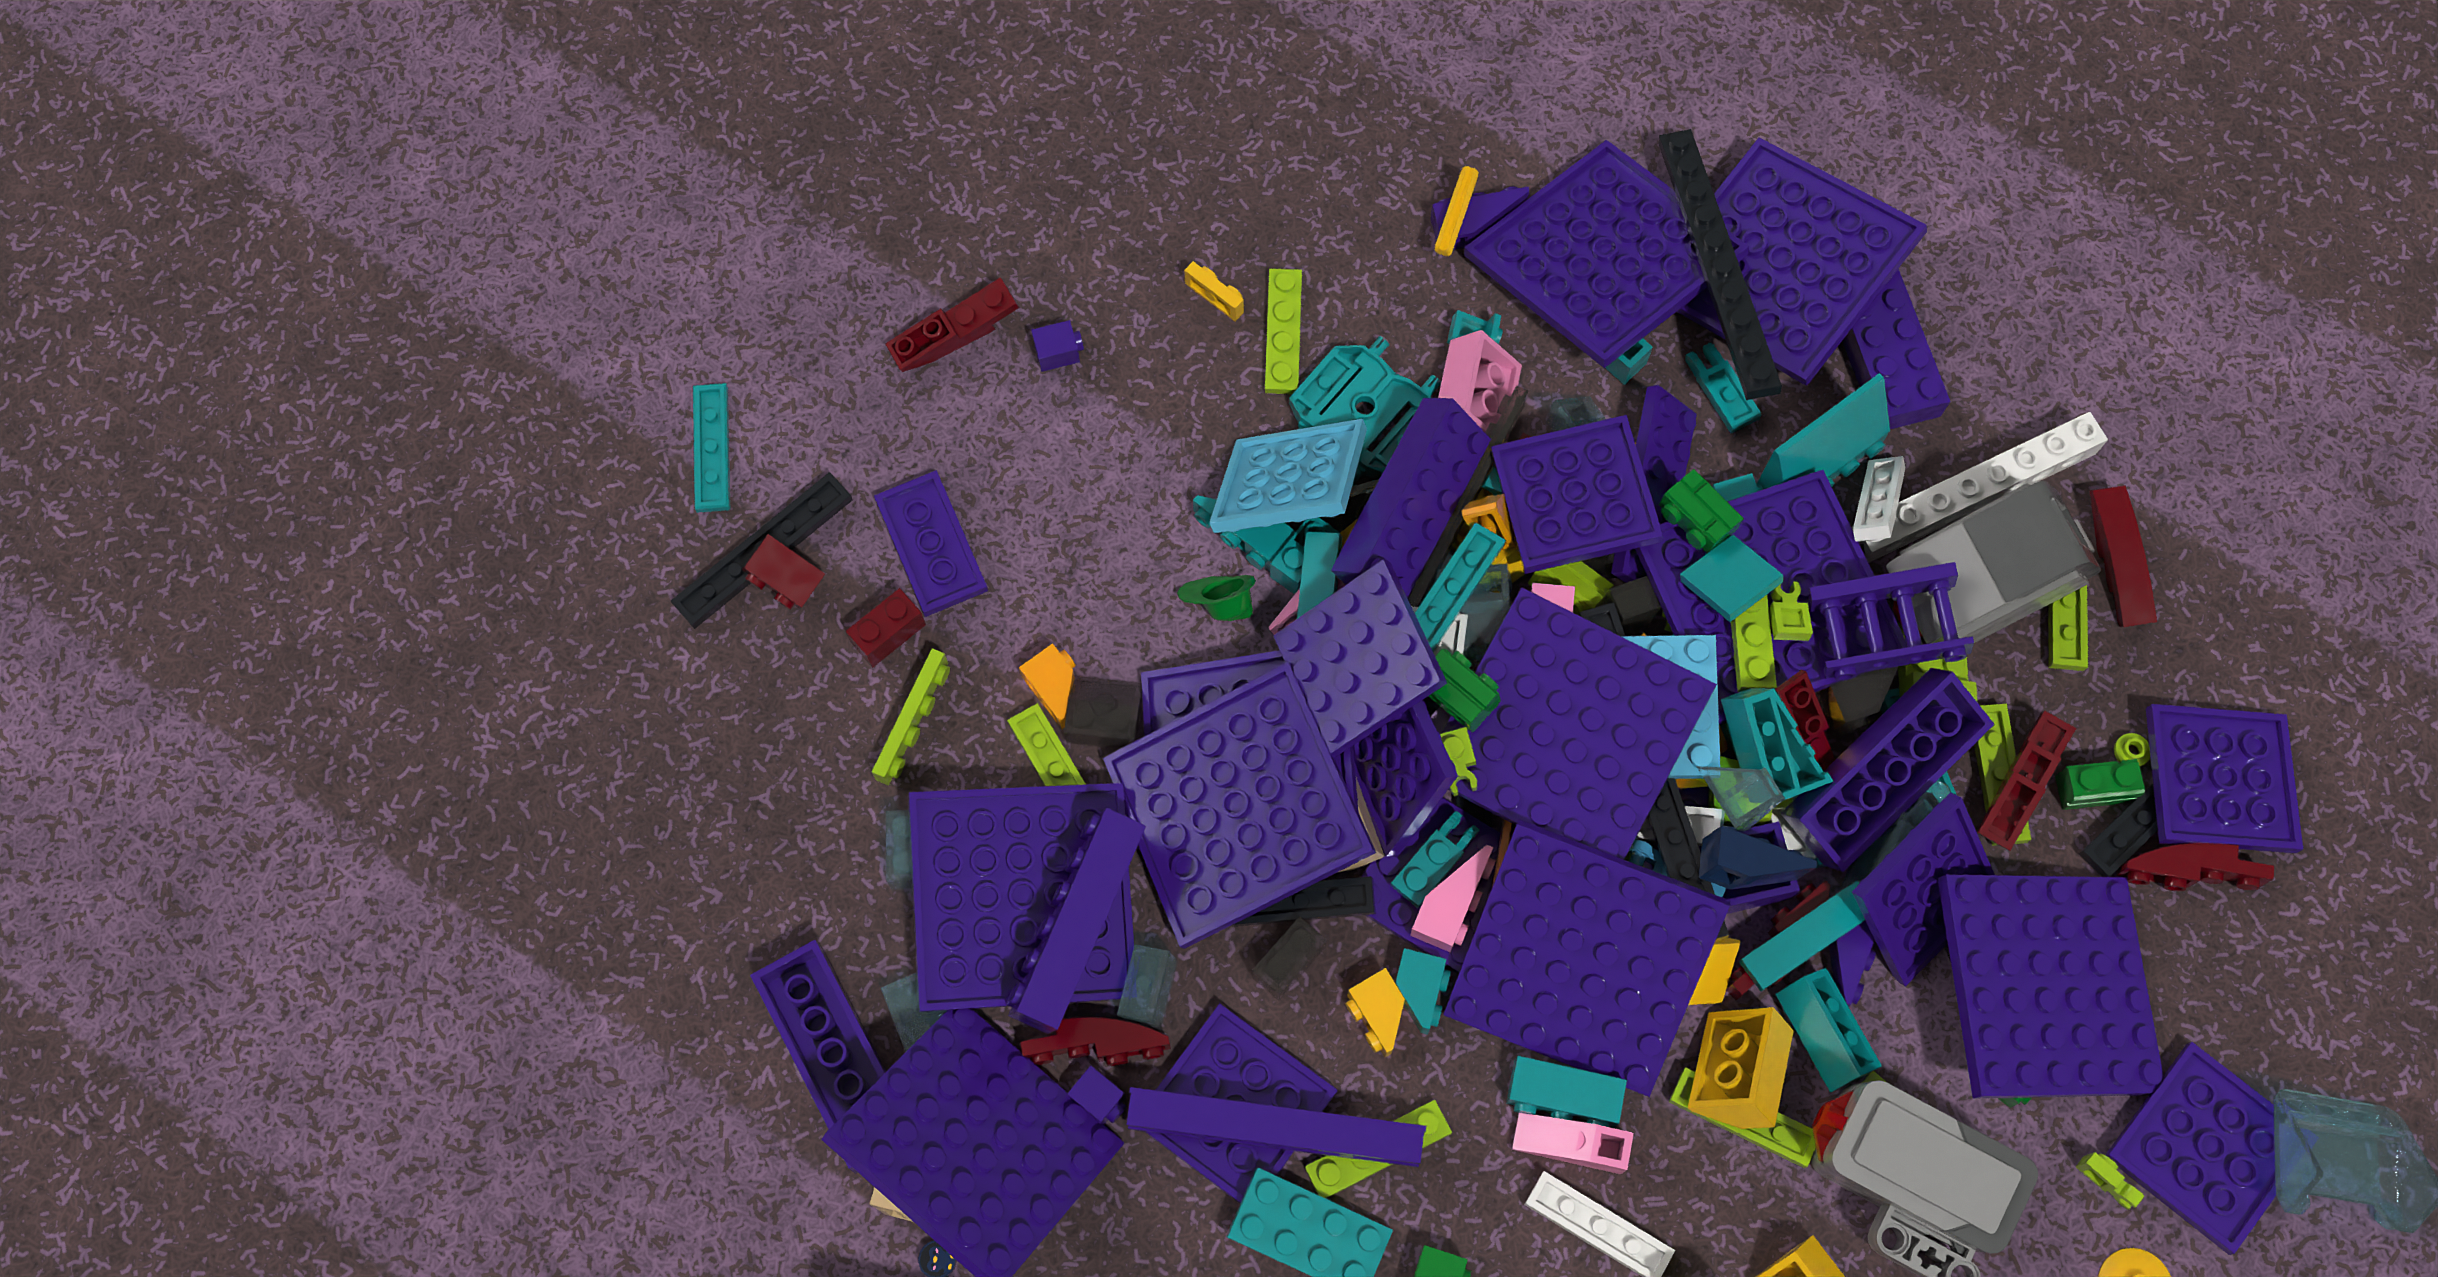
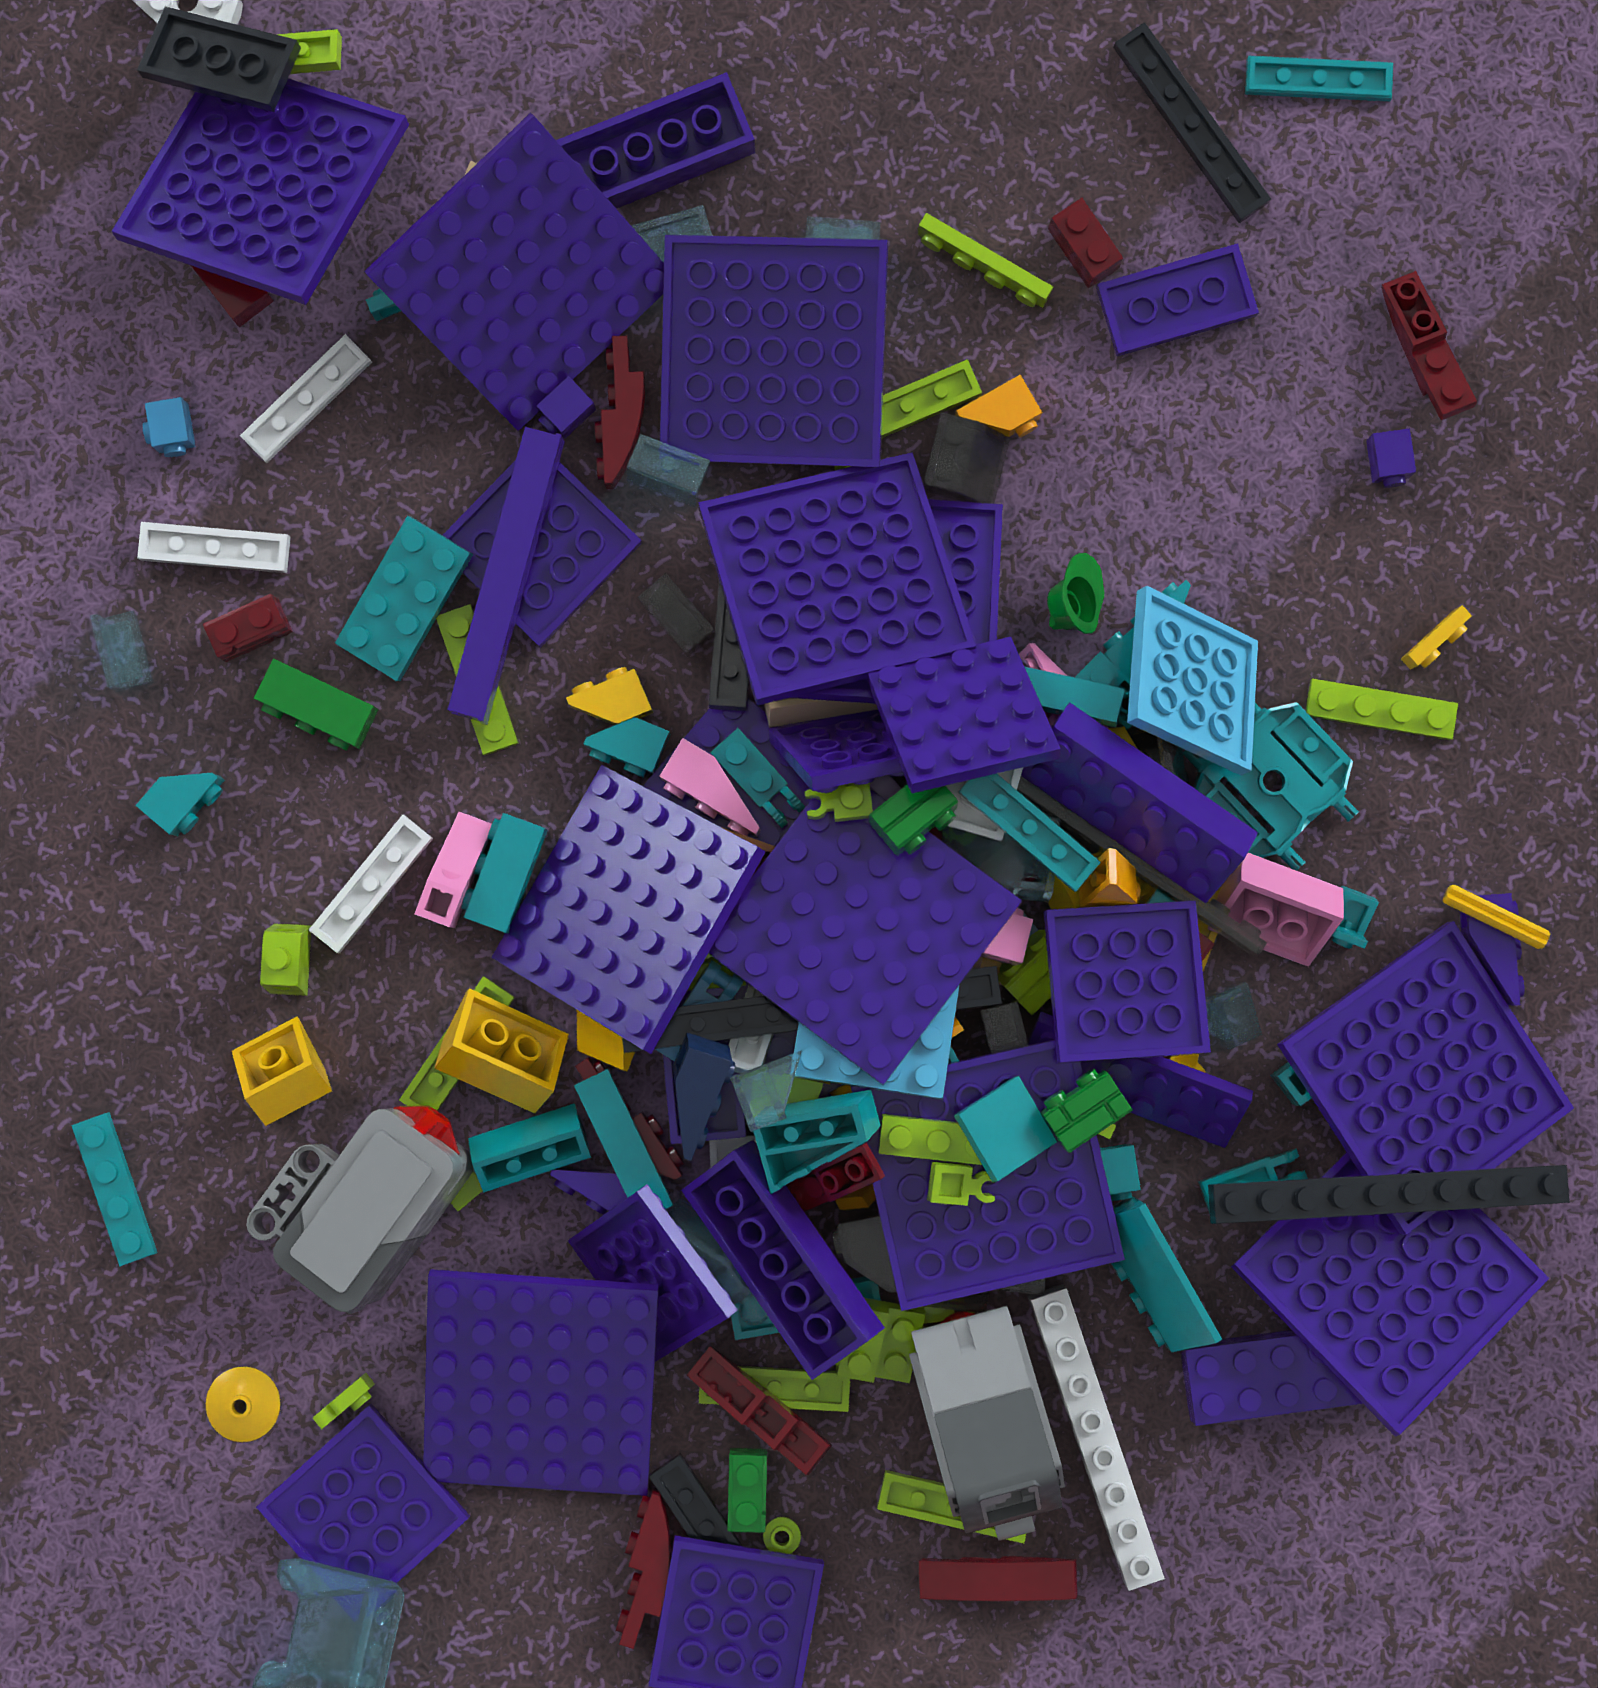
camera: 95 degrees right, 15 degrees up
(782, 572) = (1158, 139): dark red brick -> none
(1076, 922) = (731, 397): dark purple brick -> none
(1879, 499) = (1088, 1319): white plate -> none
(1901, 588) = (964, 1306): dark purple fence -> none

